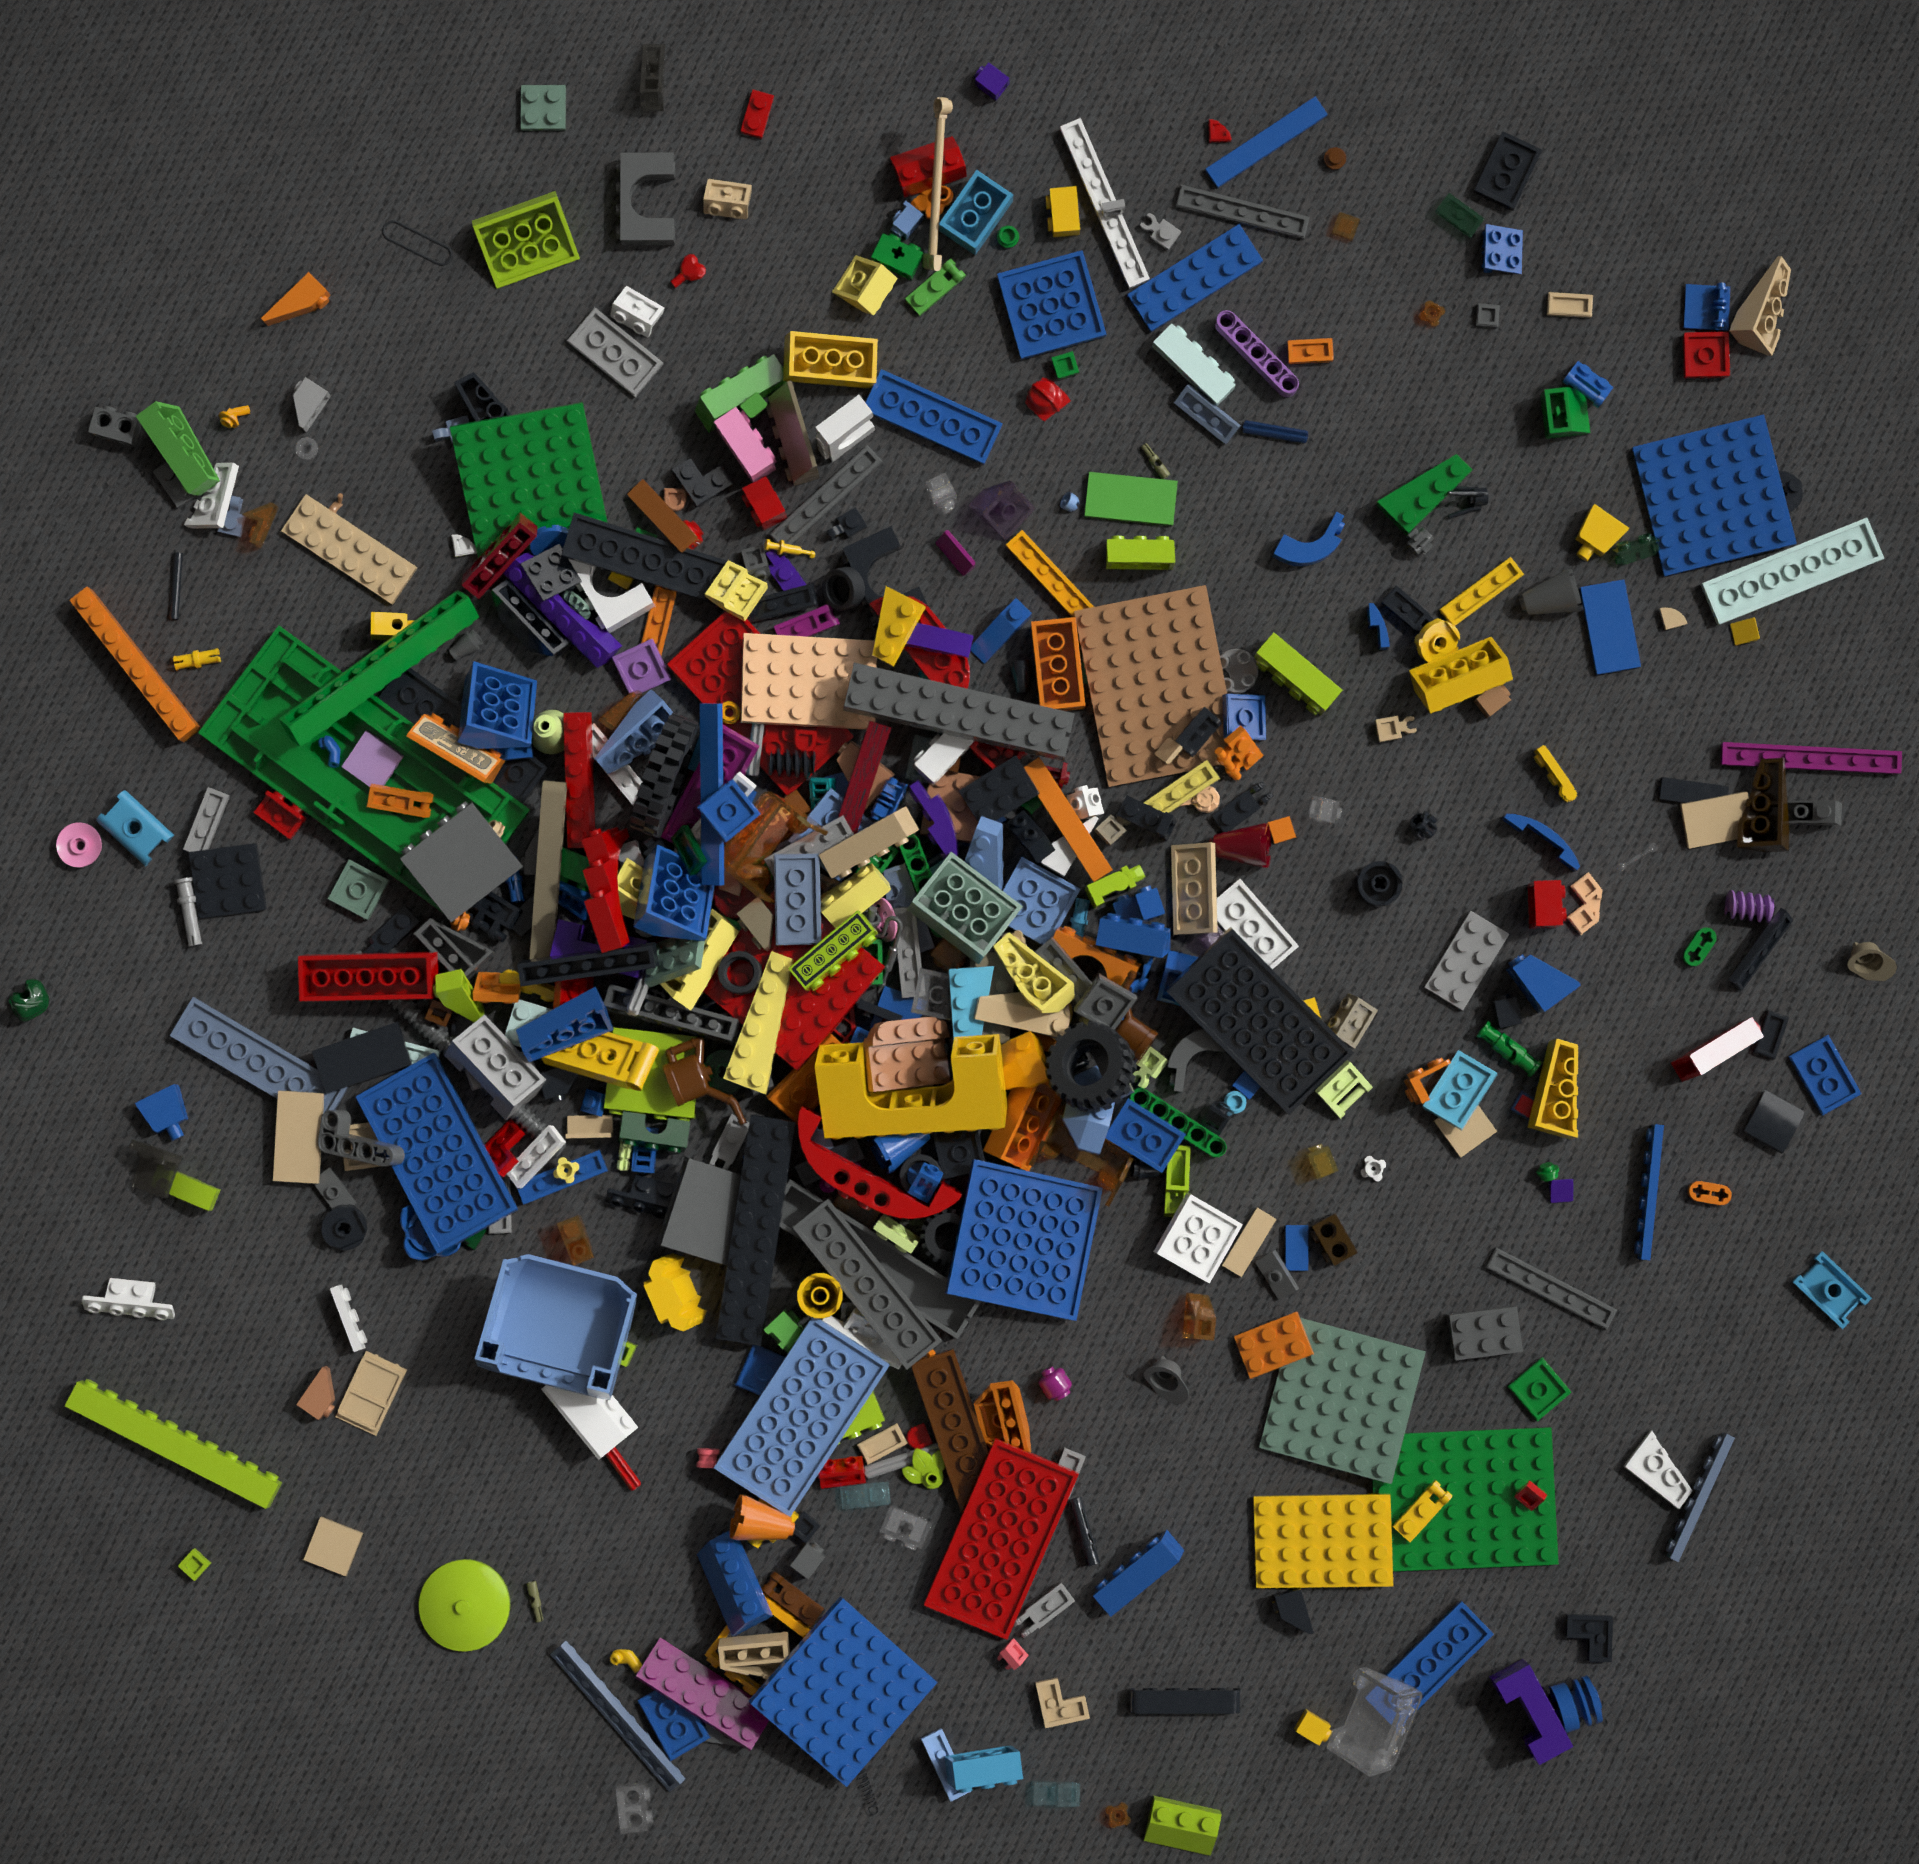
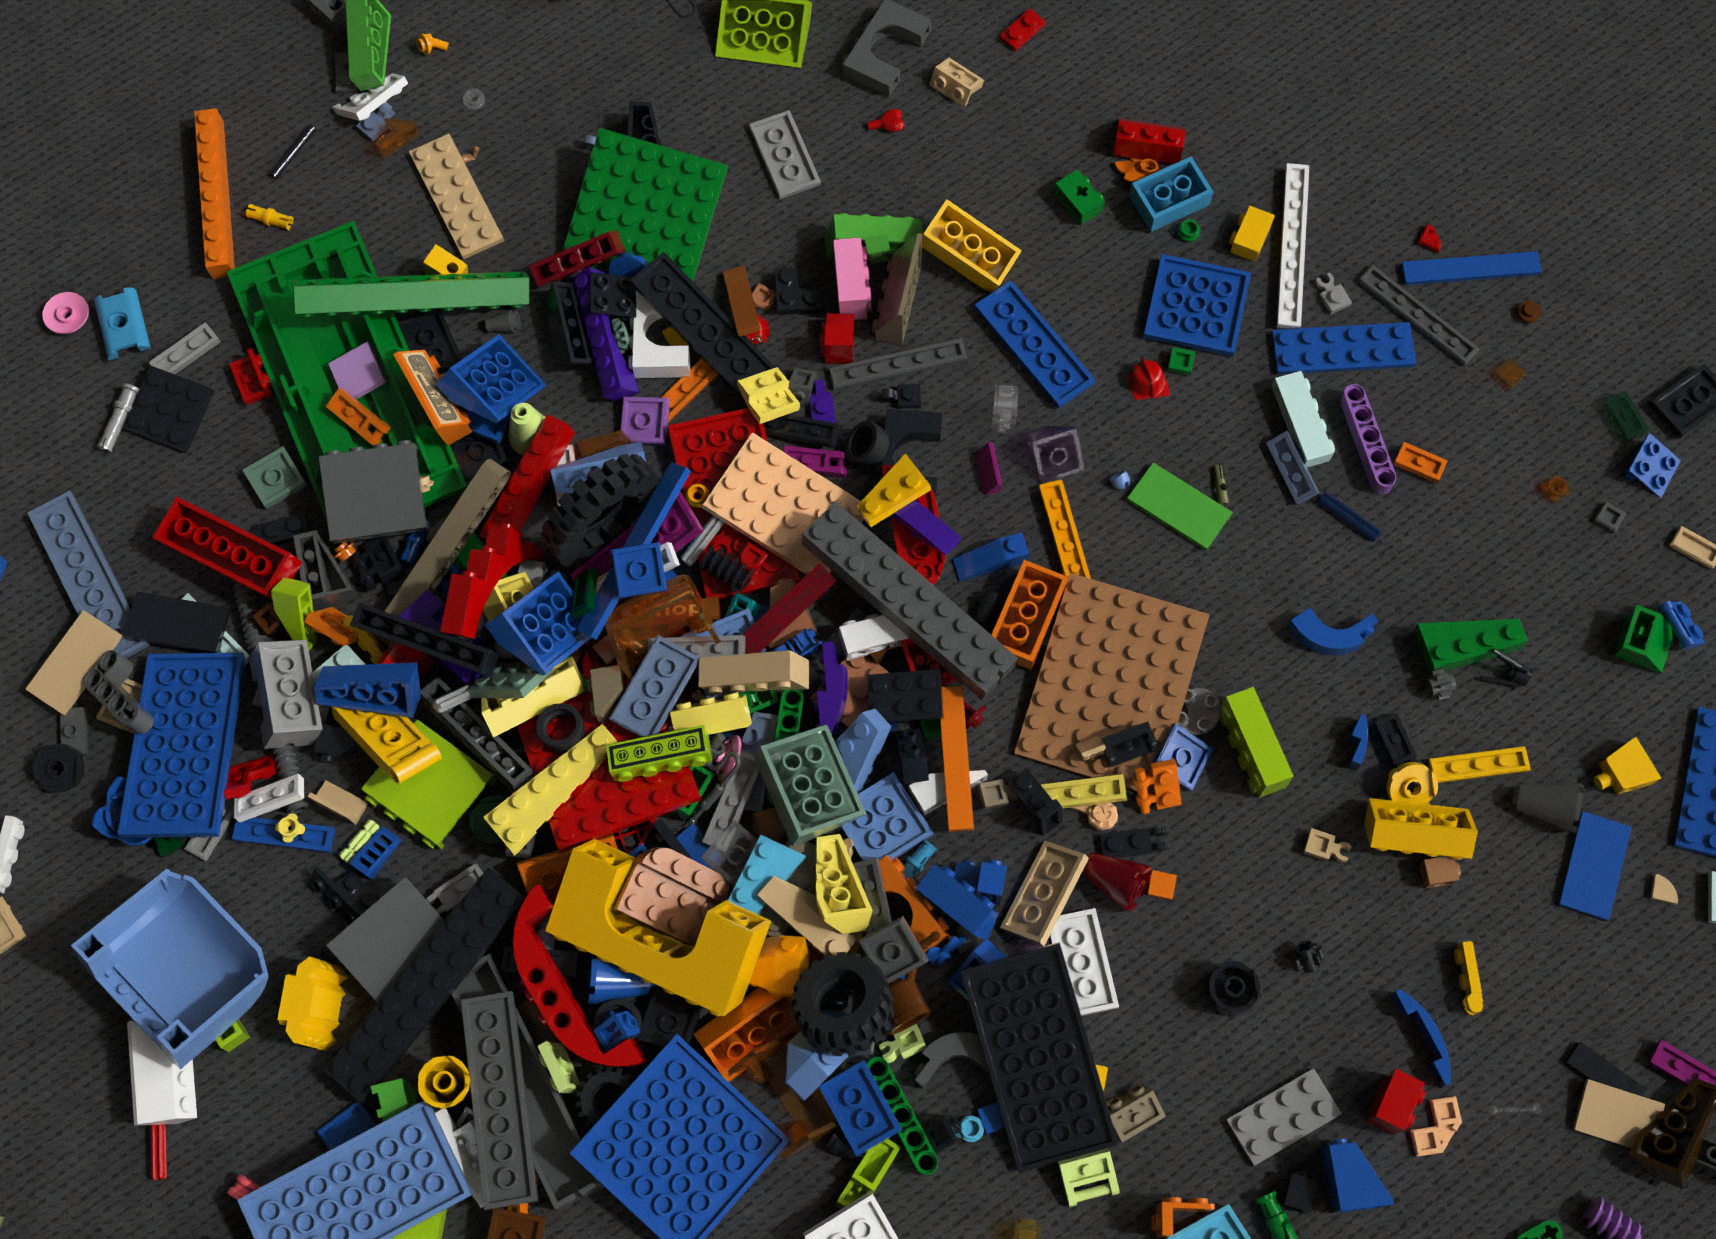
camera: 30 degrees right, 15 degrees down
(309, 402) = (499, 64): light grey slope -> none
(334, 750) = (332, 347): blue arm -> none
(463, 546) = (553, 242): white tile -> none
(576, 1239) = (257, 898): clear orange slope -> none
(593, 1102) = (355, 780): blue plate -> none
(633, 1133) = (405, 853): dark green arch -> none
(636, 311) = (822, 130): white bracket -> none
(690, 1077) = (456, 801): reddish brown piece -> none
(786, 548) = (838, 387): yellow piece -> none
(844, 429) = (946, 303): white arch -> none
(865, 284) = (1038, 206): light yellow slope -> none
(907, 221) = (1105, 173): medium blue brick -> none
(934, 288) = (1099, 240): bright green plate -> none
(941, 108) = (1188, 84): tan hinge -> none
(991, 81) = (1245, 99): dark purple brick -> none
(1086, 802) = (983, 754): white brick -> none
(1113, 208) = (1299, 248): light grey tile -> none
(1114, 884) = (967, 844): lime hips -> none
(1140, 553) = (1161, 556): lime slope -> none
(1324, 810) = (1214, 887): clear brick -> none
(1626, 550) = (1667, 806): clear green hinge -> none

